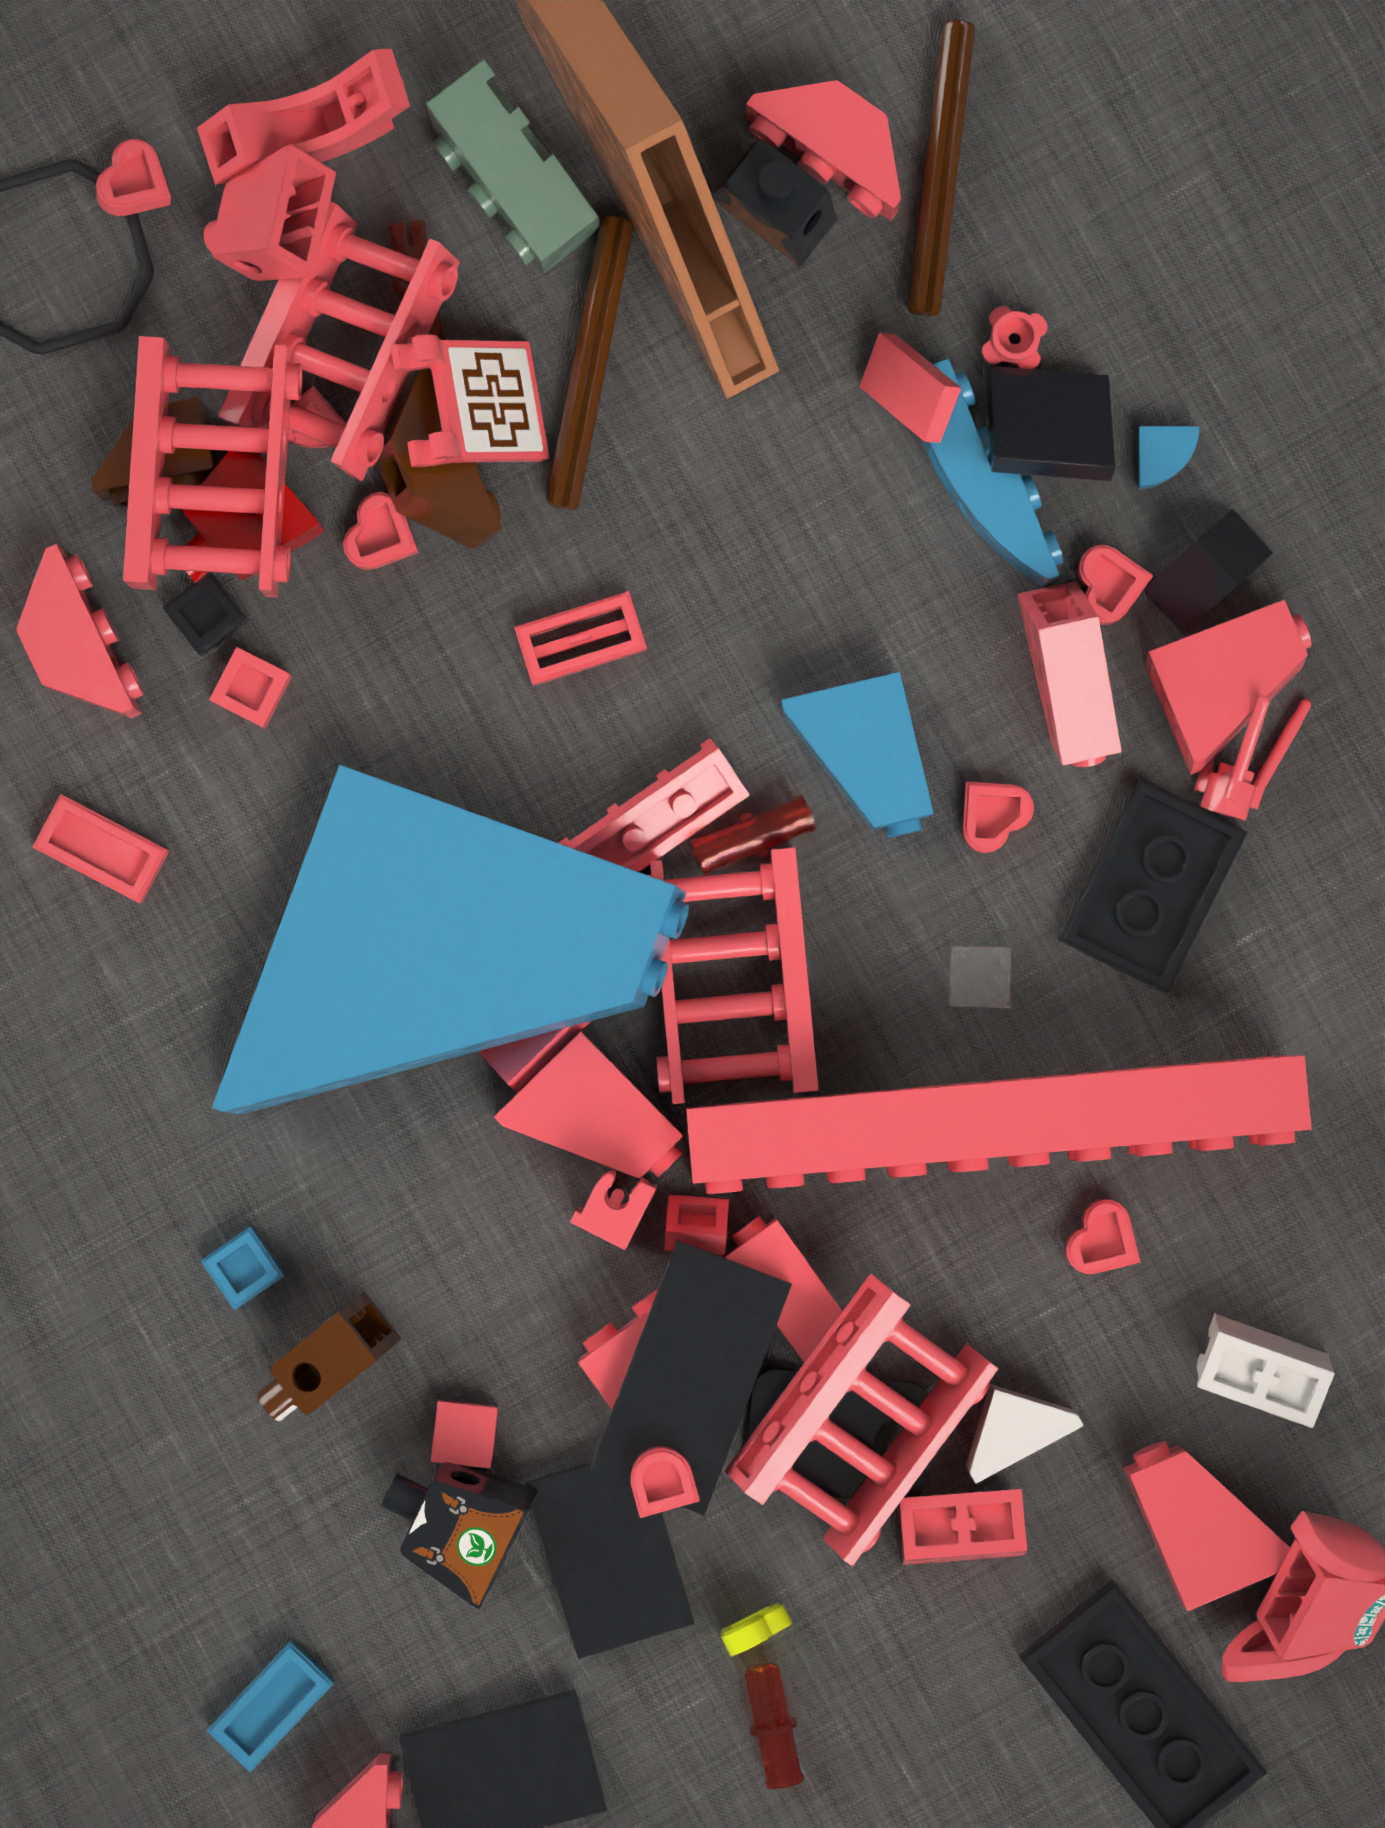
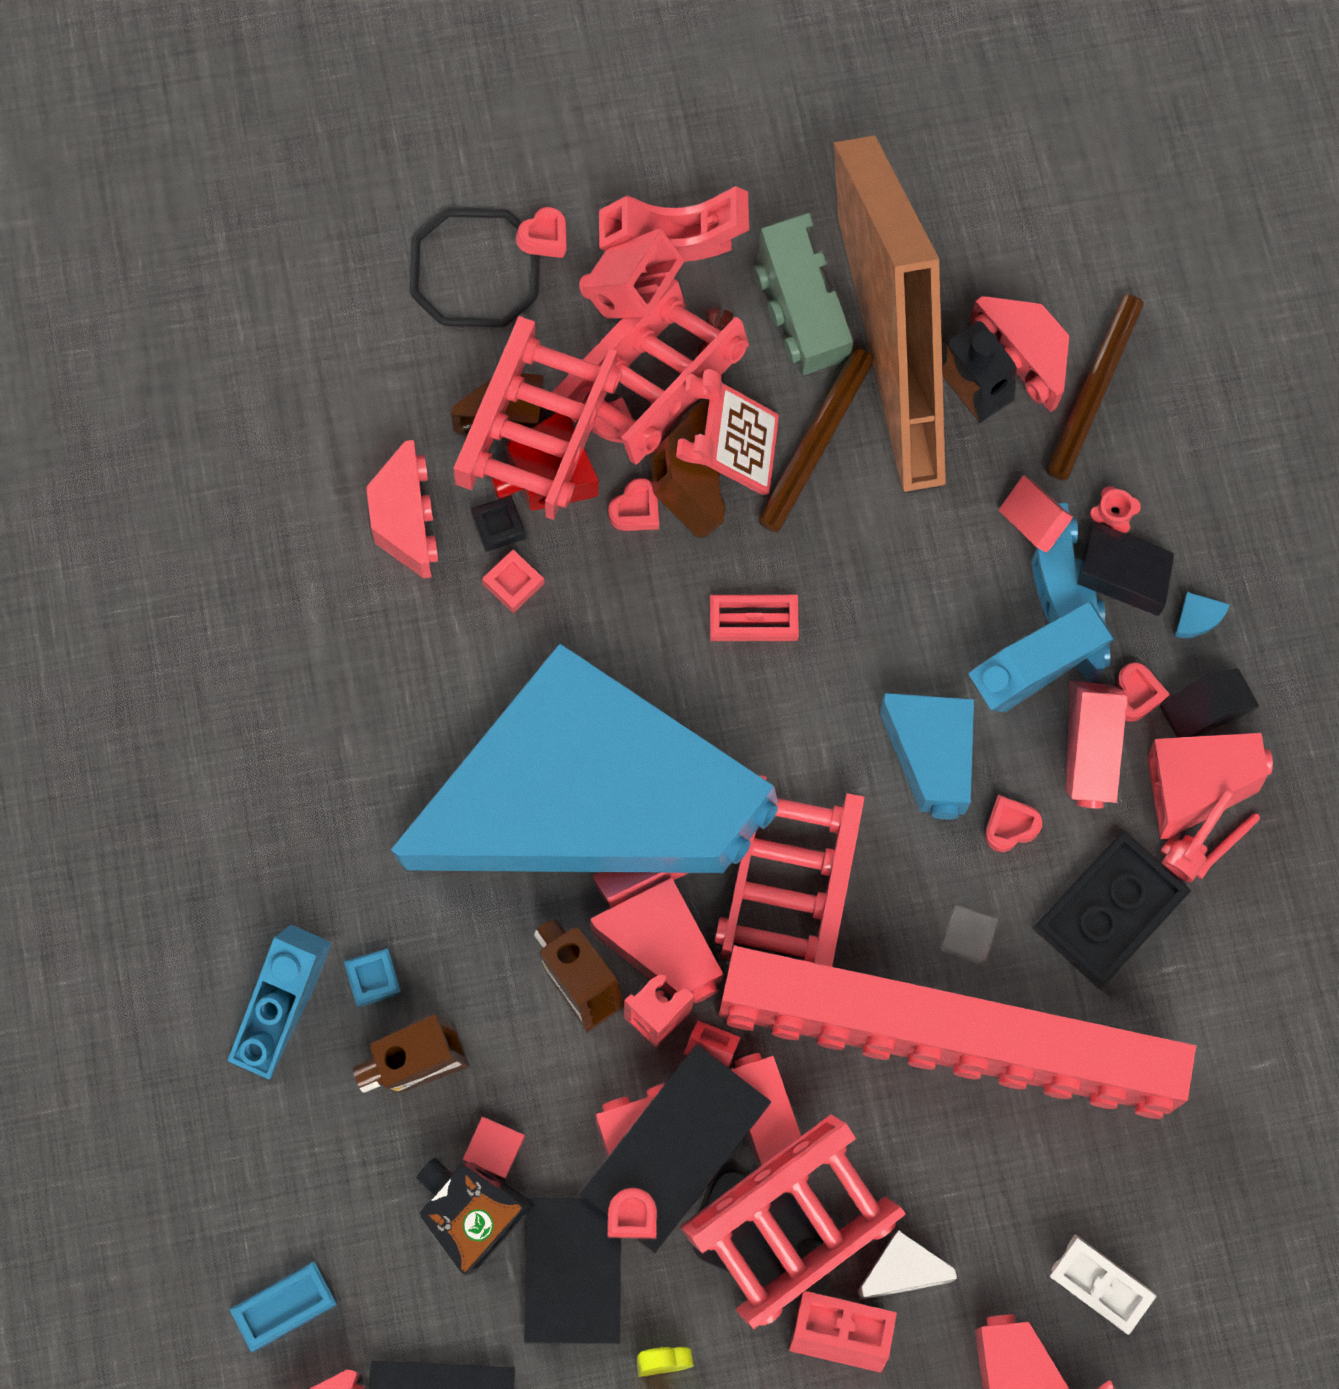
camera: 10 degrees right, 15 degrees down
(101, 849) = (372, 657): coral tile -> none
(136, 1333) = (279, 999): none -> dark azure slope
(516, 1203) = (579, 974): none -> reddish brown torso
(664, 811) = (786, 747): coral hinge -> none
(753, 835) = (835, 785): clear red pin -> none
(971, 587) = (1040, 658): none -> dark azure slope
(1104, 1239) = (1007, 1152): coral tile -> none

